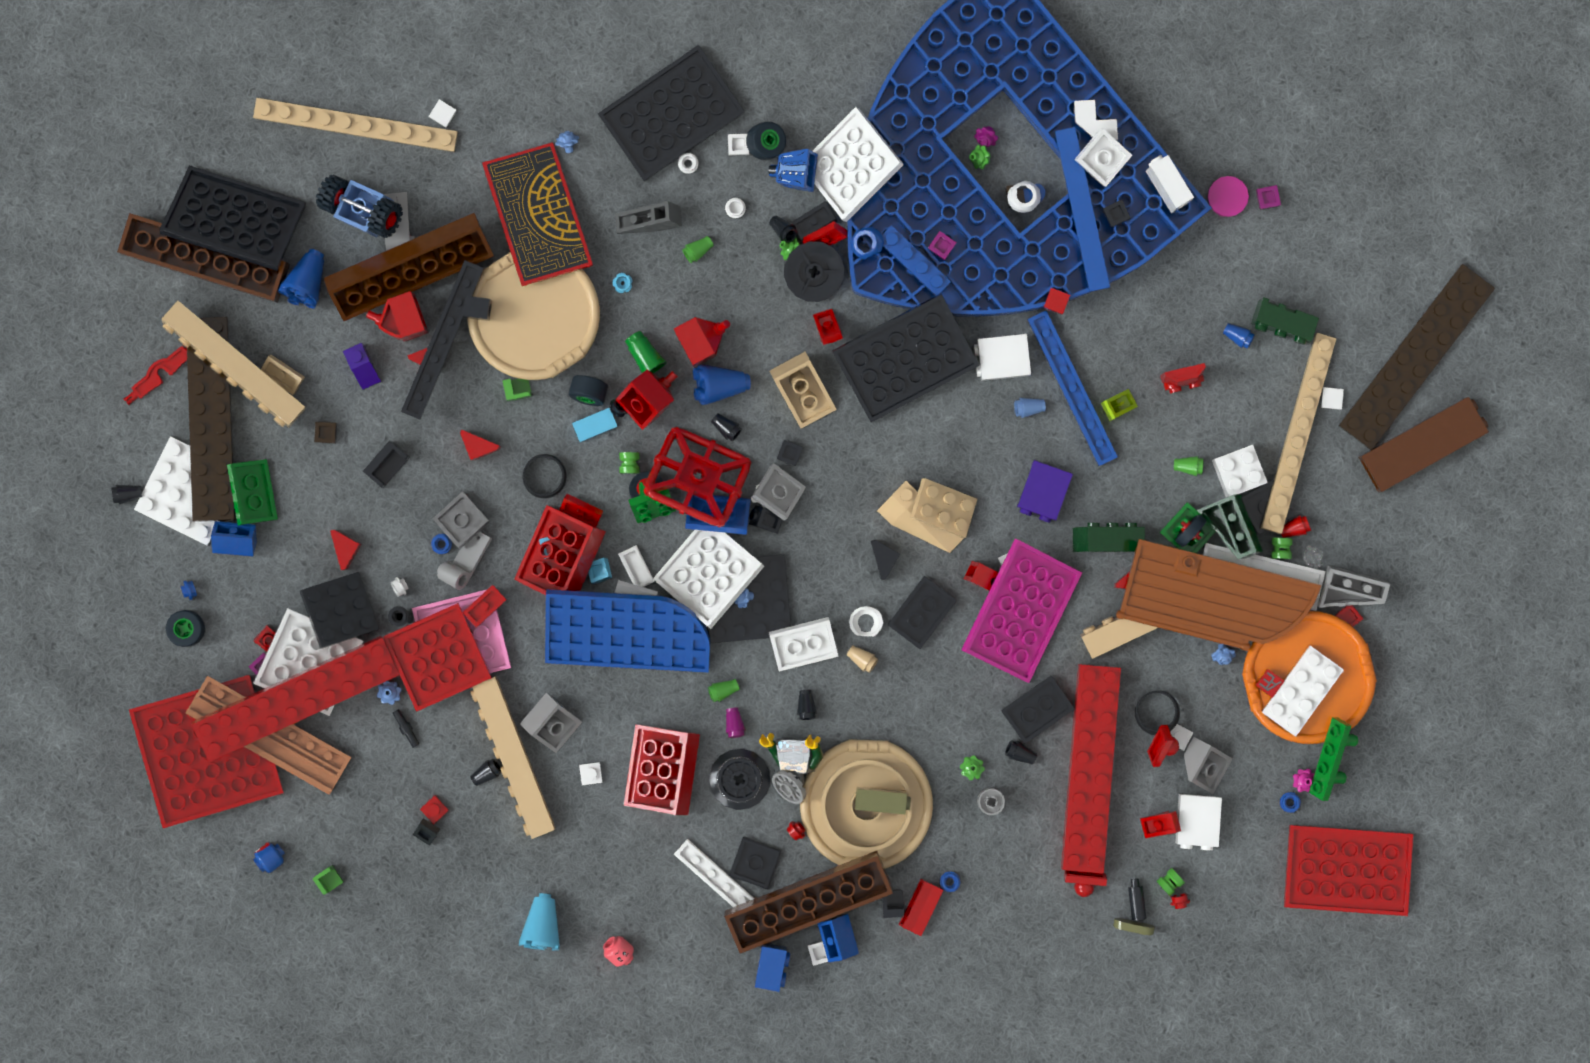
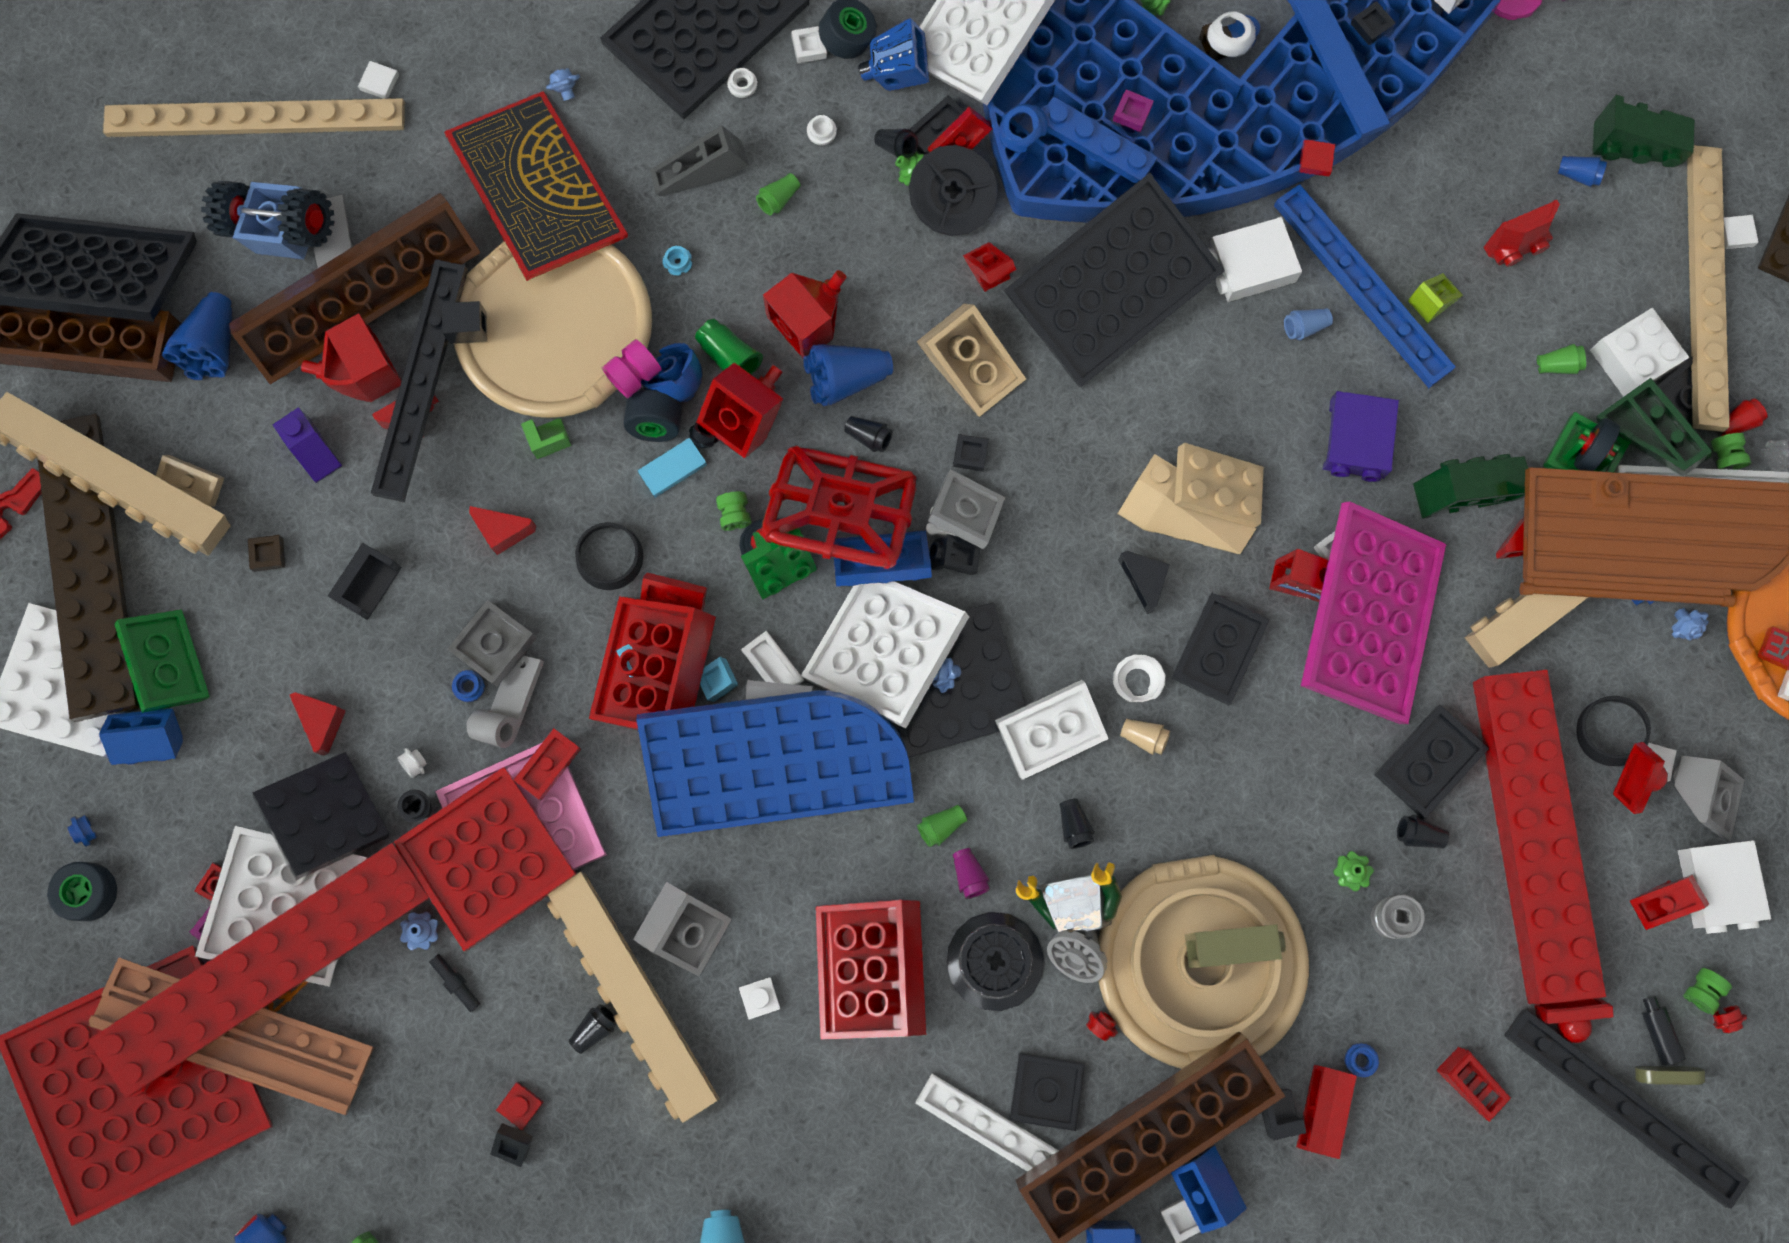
camera: 10 degrees left, 10 degrees down
(580, 361) = (631, 368): none -> dark pink wheel
(605, 364) = (680, 373): none -> blue cylinder
(1005, 894) = (1457, 1069): none -> red slope
(1102, 940) = (1627, 1109): none -> black plate

